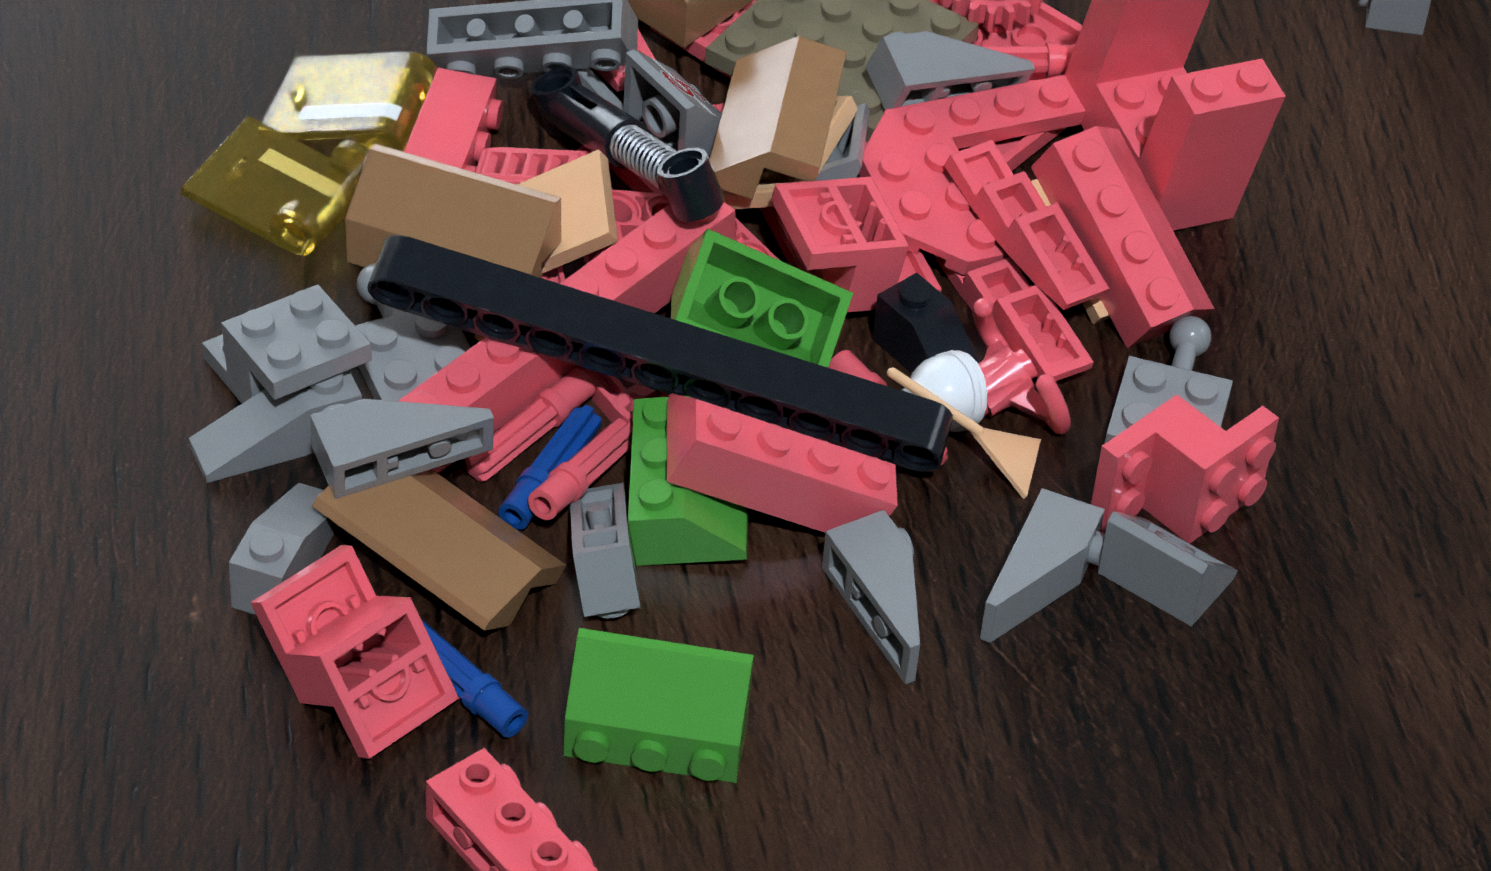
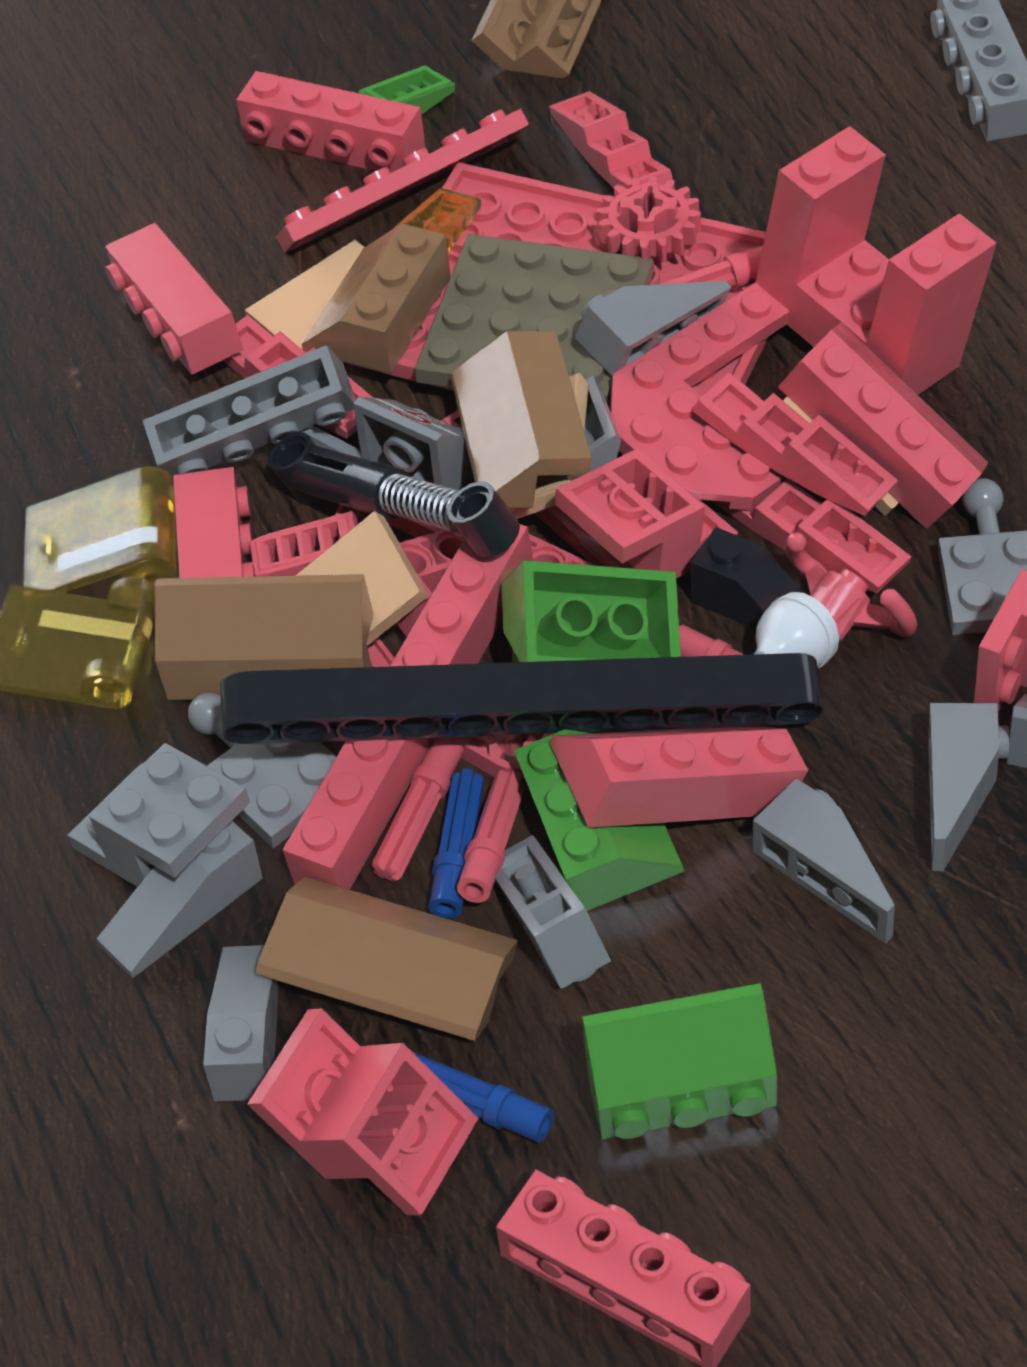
camera: 10 degrees left, 5 degrees up
(388, 440) = (307, 882): light grey slope -> none
(1010, 452) = (872, 671): light nougat piece -> none

